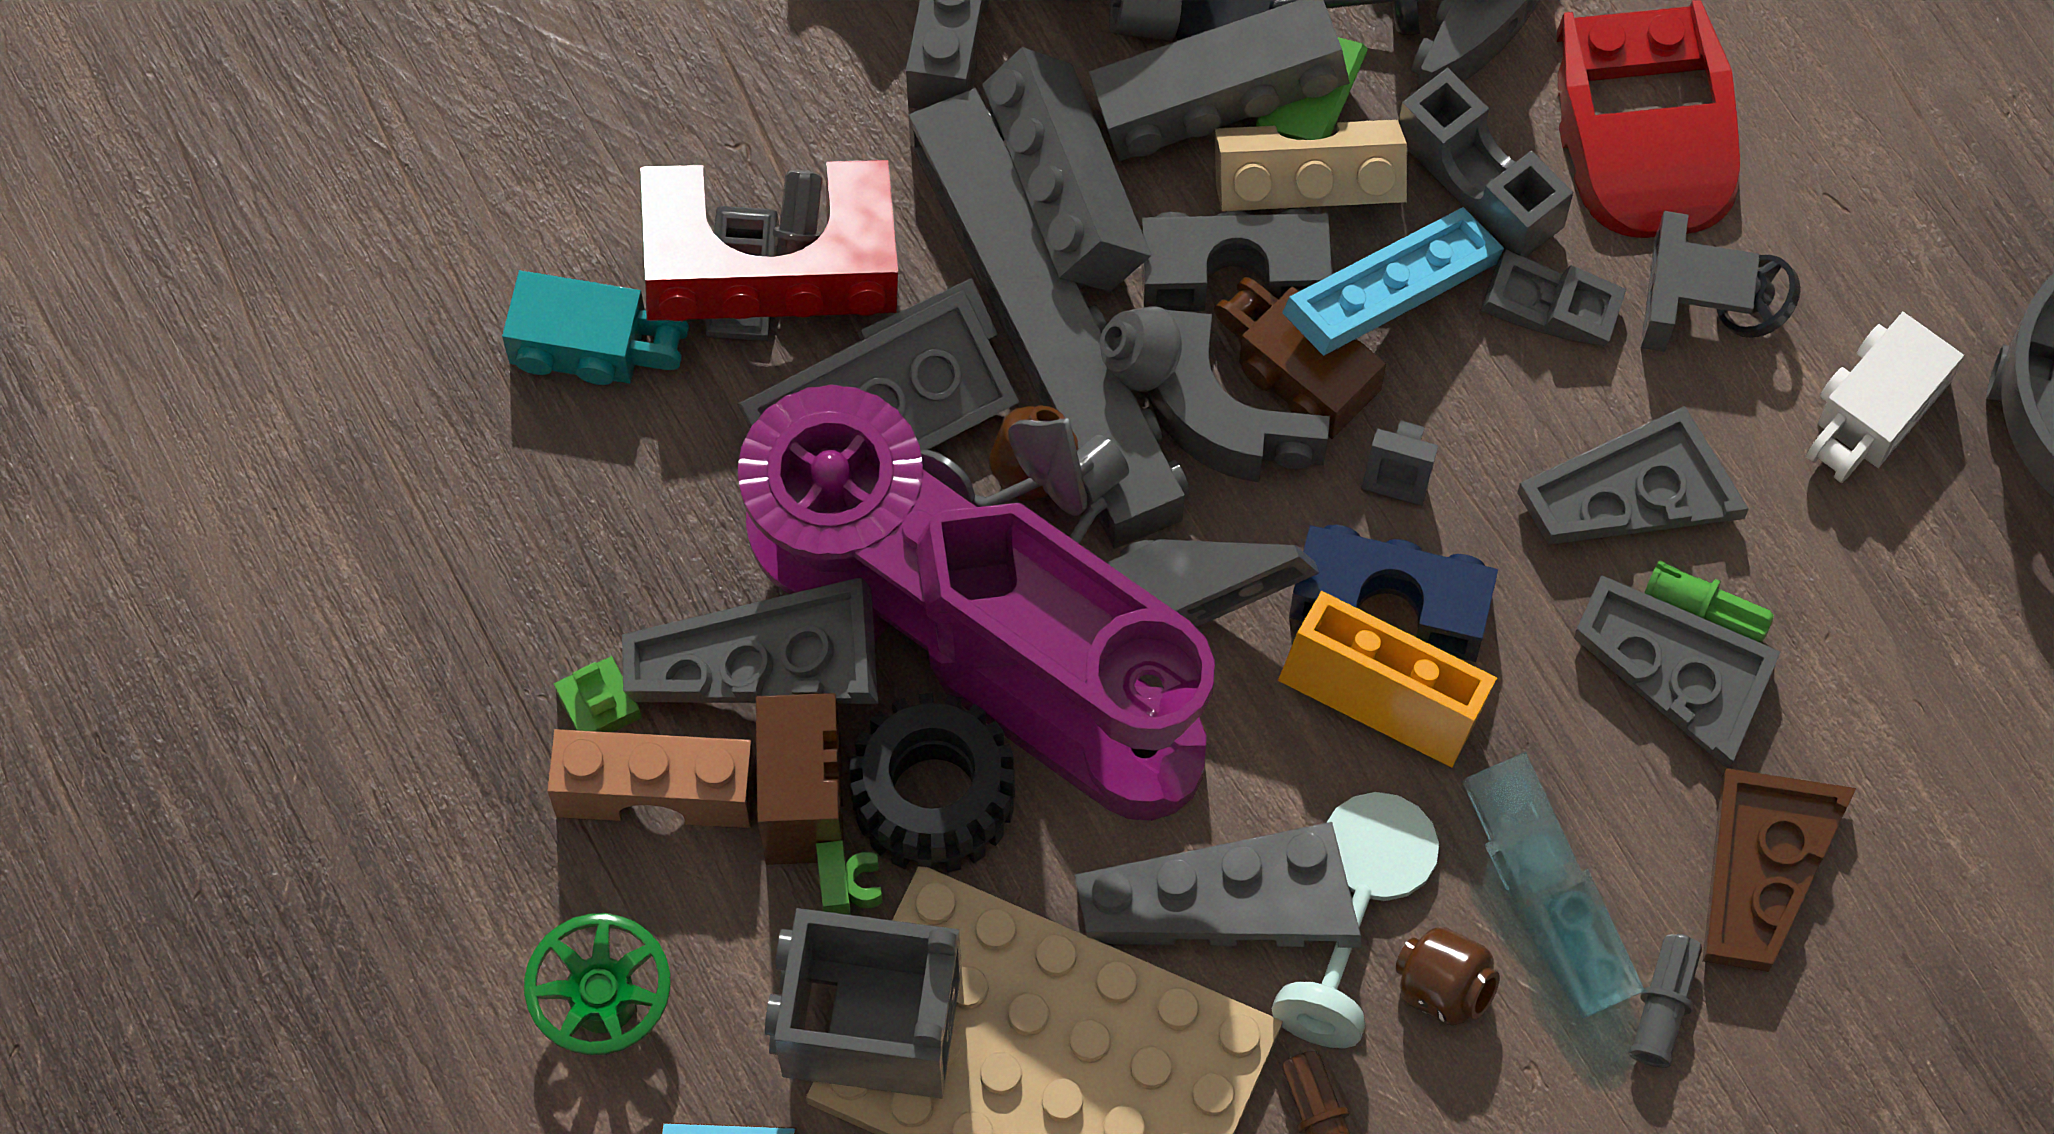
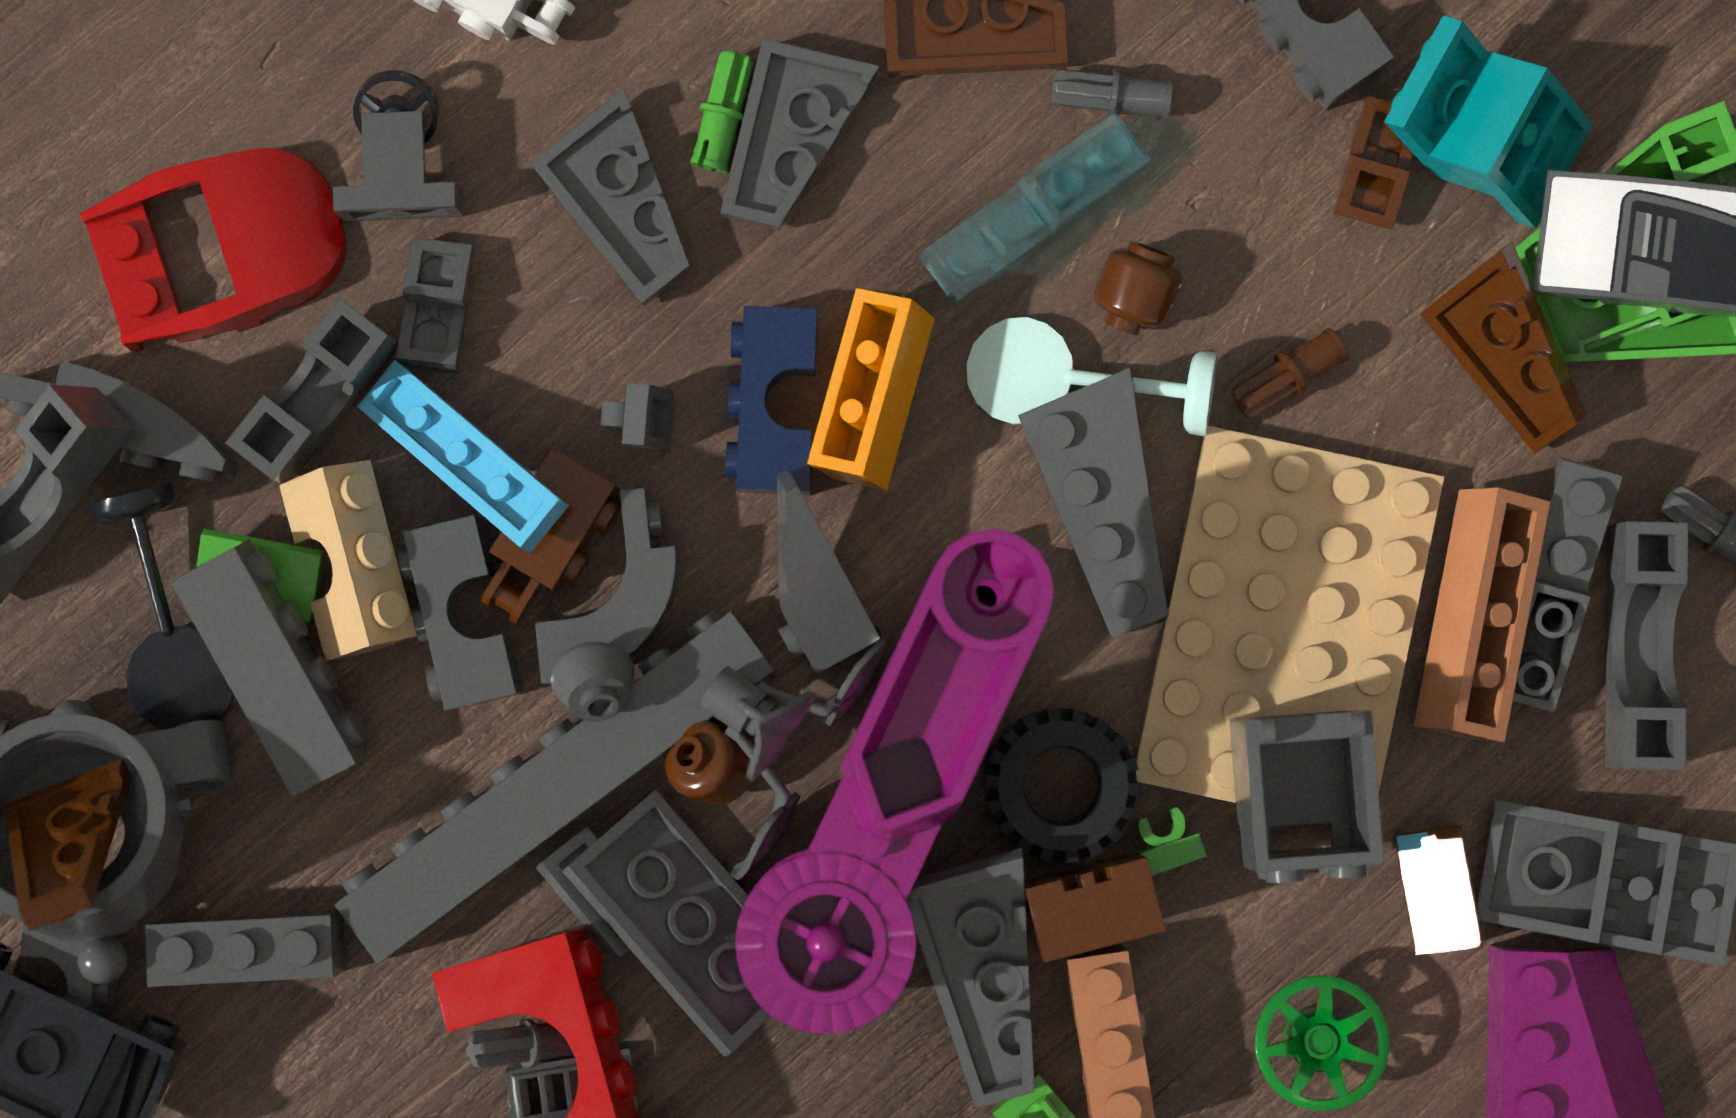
camera: 100 degrees left, 20 degrees up
(1066, 170) = (405, 796): dark grey brick -> none

